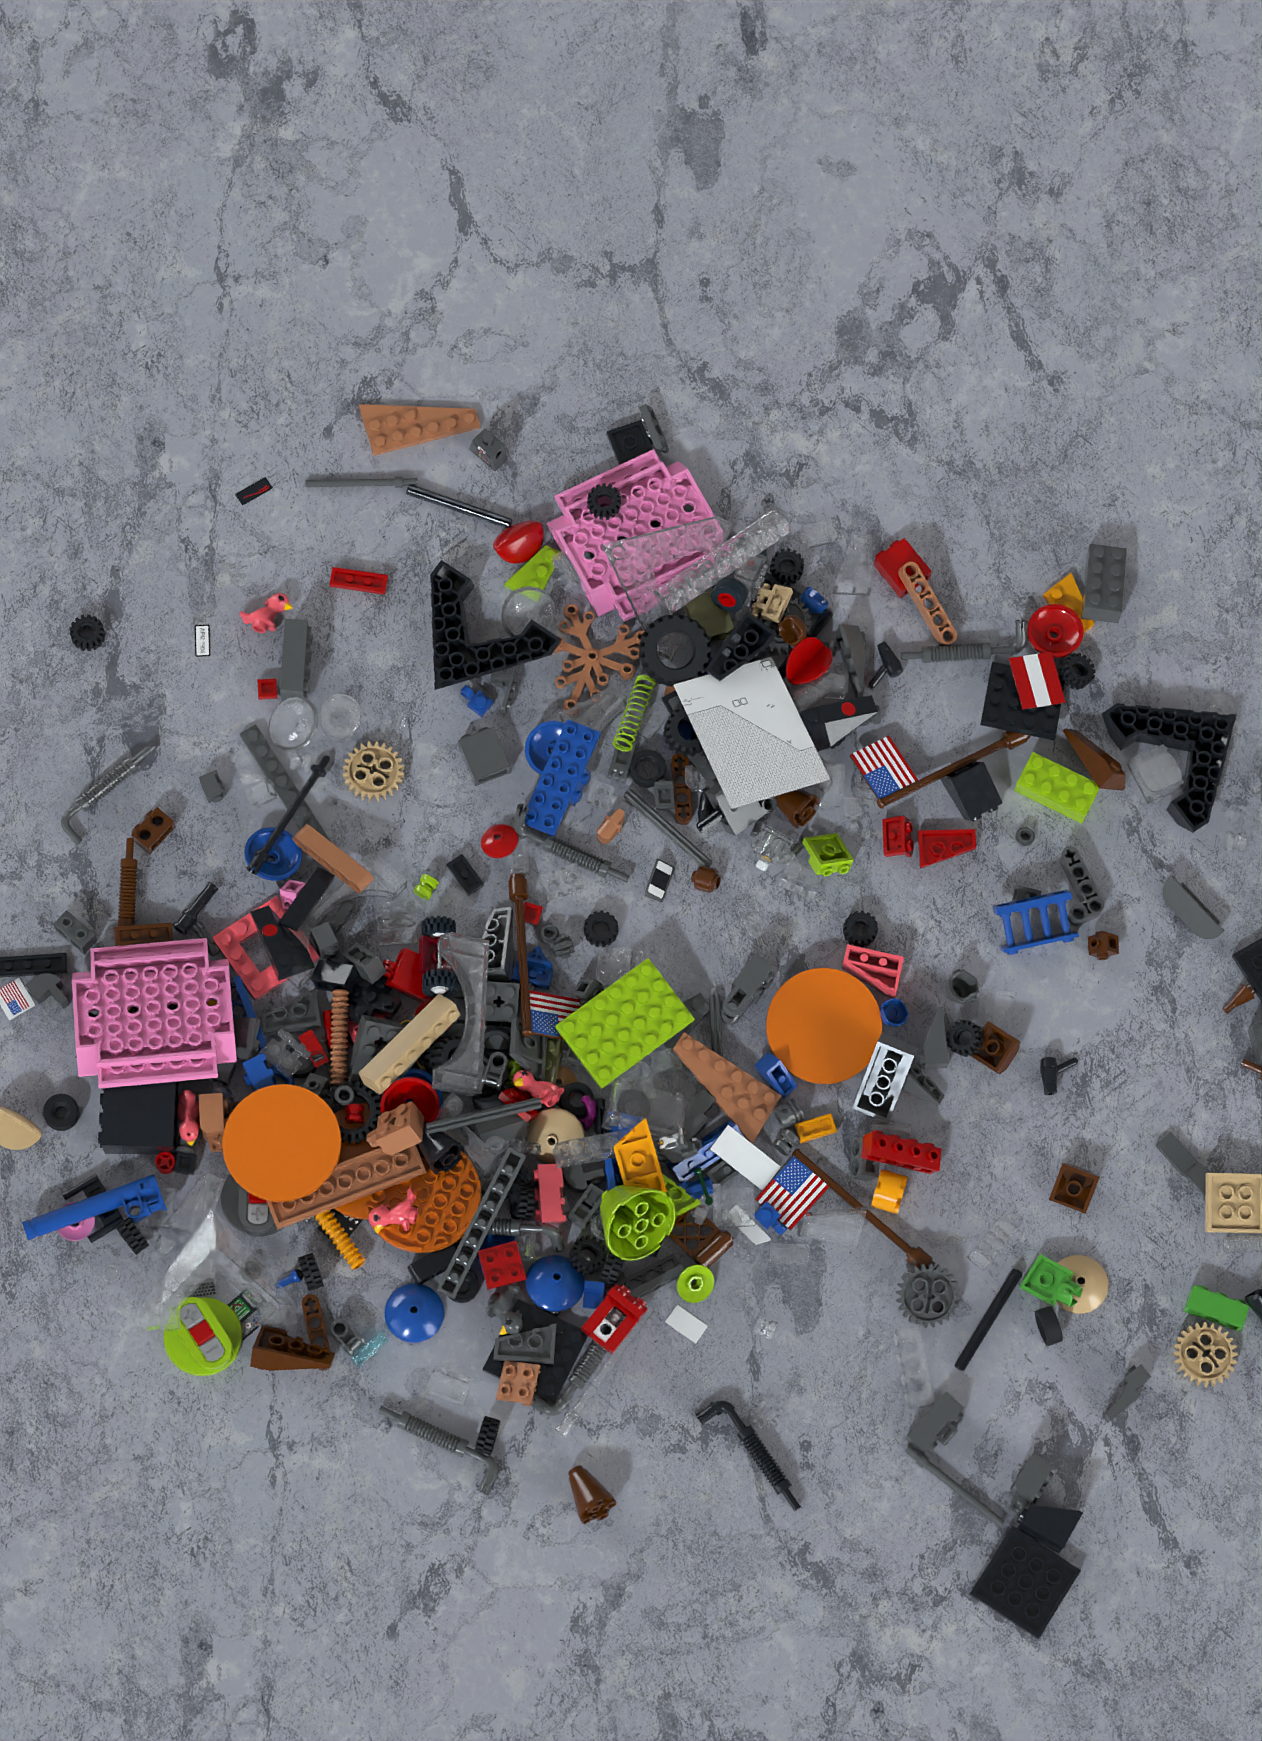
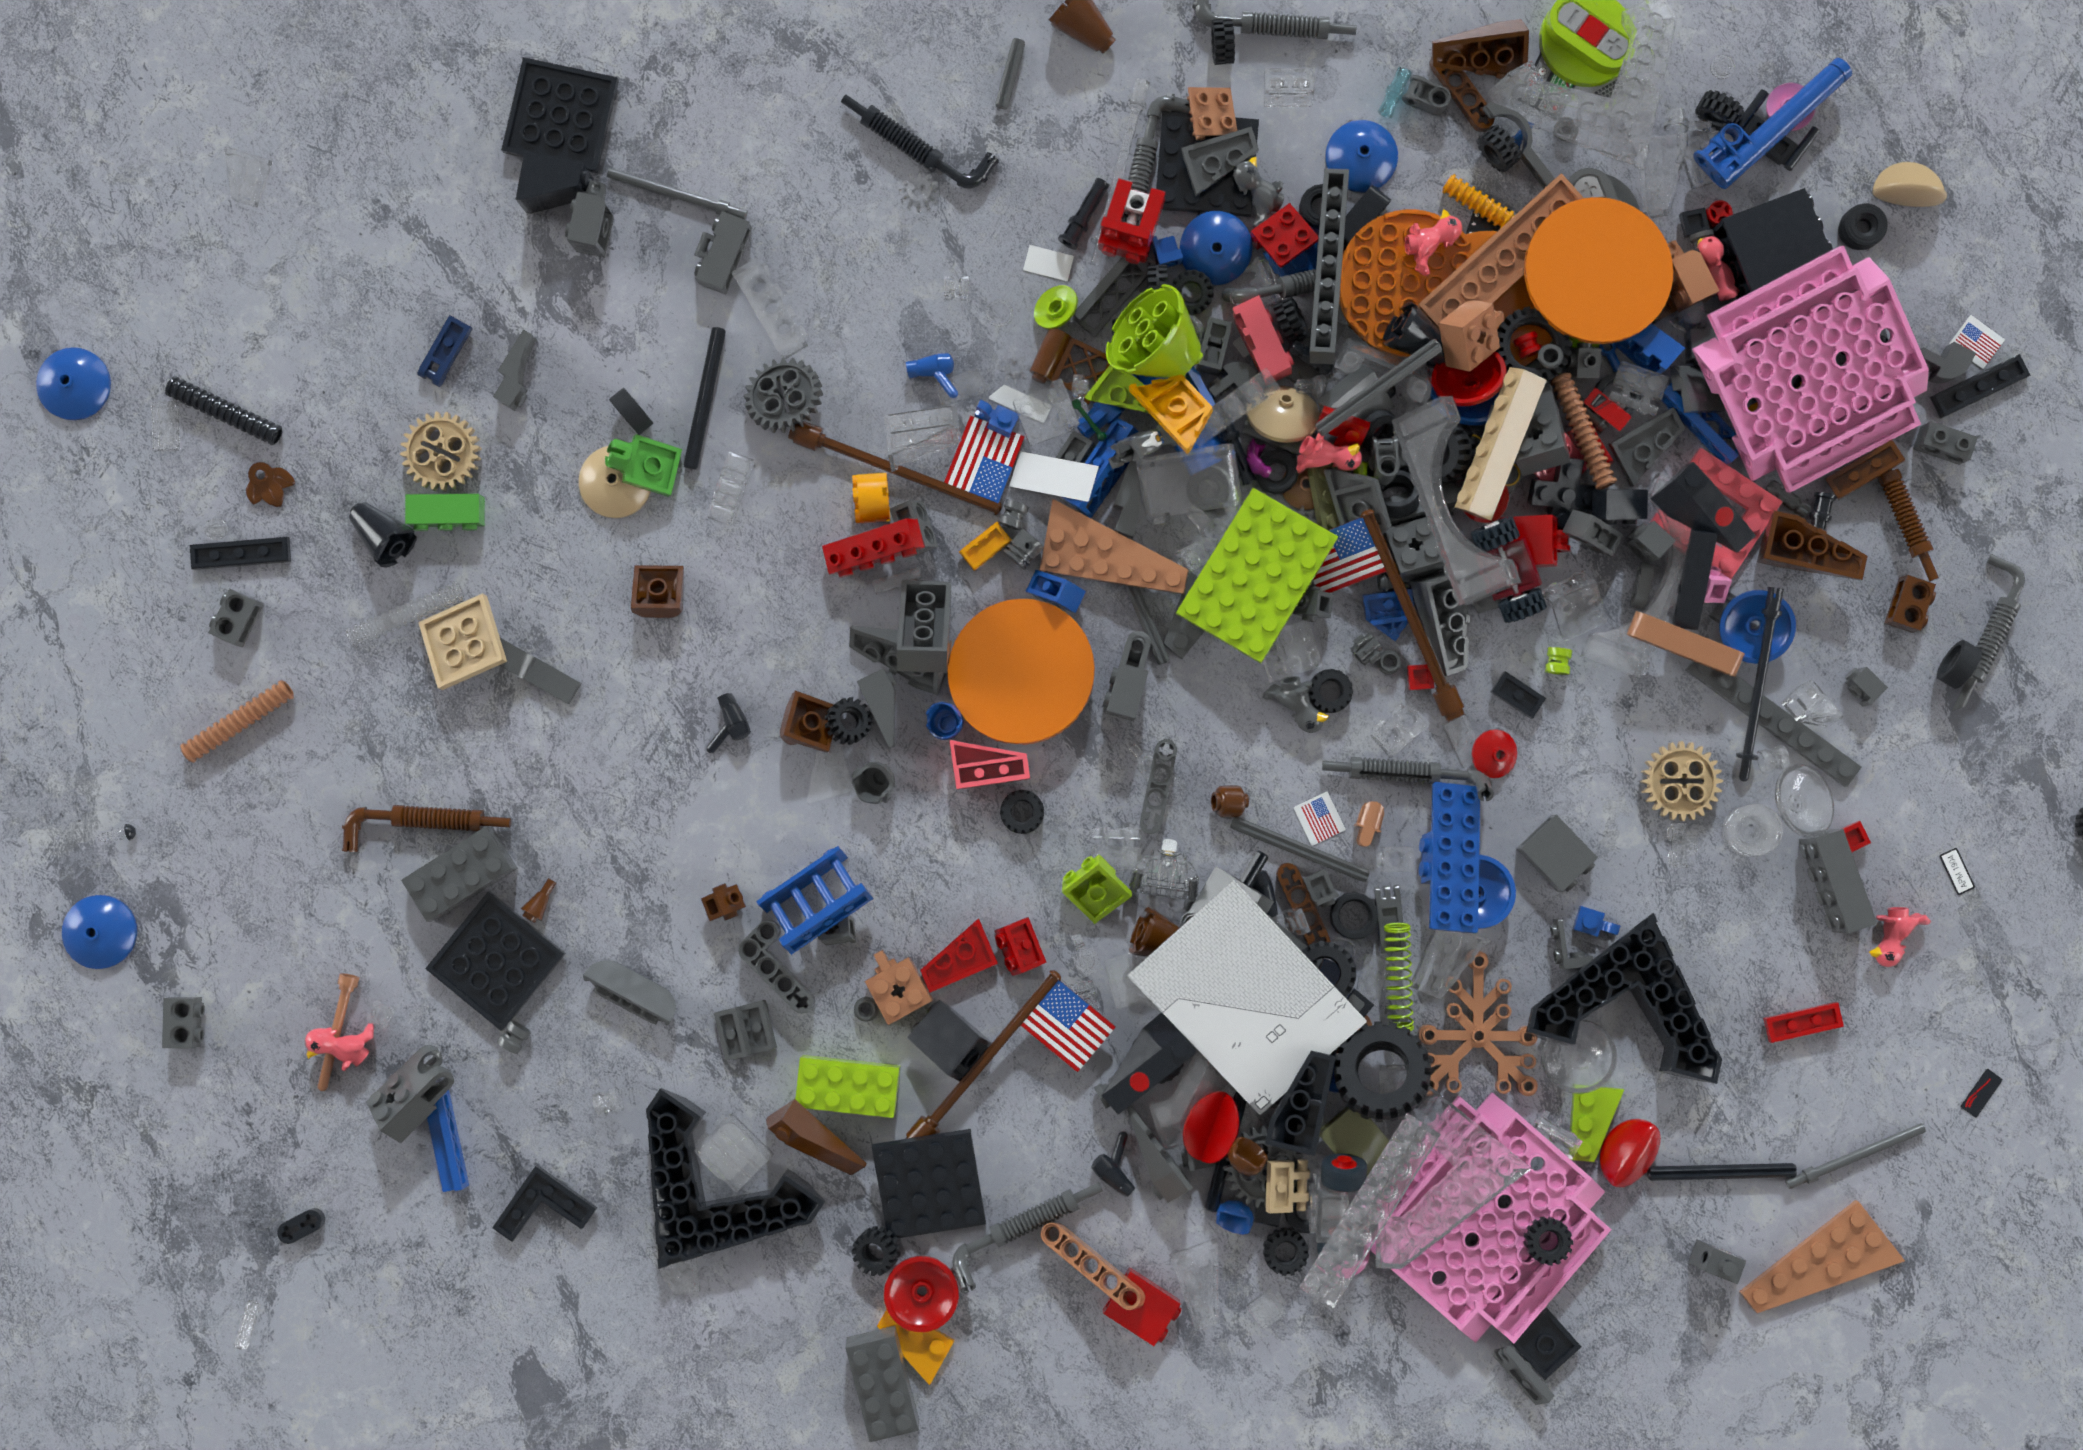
camera: 165 degrees right, 15 degrees up
(139, 774) = (1959, 664): none -> black tyre
(217, 896) = (1800, 546): none -> reddish brown wedge
(299, 1298) = (1528, 156): none -> dark grey piece
(629, 931) = (1295, 697): none -> dark grey animal
(644, 845) = (1319, 818): none -> sticker
(652, 1342) = (1079, 222): none -> black pin
(659, 880) = (1284, 779): slope -> none
(660, 1480) = (1010, 73): none -> dark grey axle
(753, 907) = (1156, 786): none -> dark grey beam
(801, 1274) = (937, 366): none -> blue piece
(989, 847) = (883, 984): none -> nougat hinge
(1037, 680) = (920, 1215): red sticker -> none
(1118, 854) = (745, 1030): none -> dark grey slope
(1176, 1432) = (444, 350): none -> dark blue plate

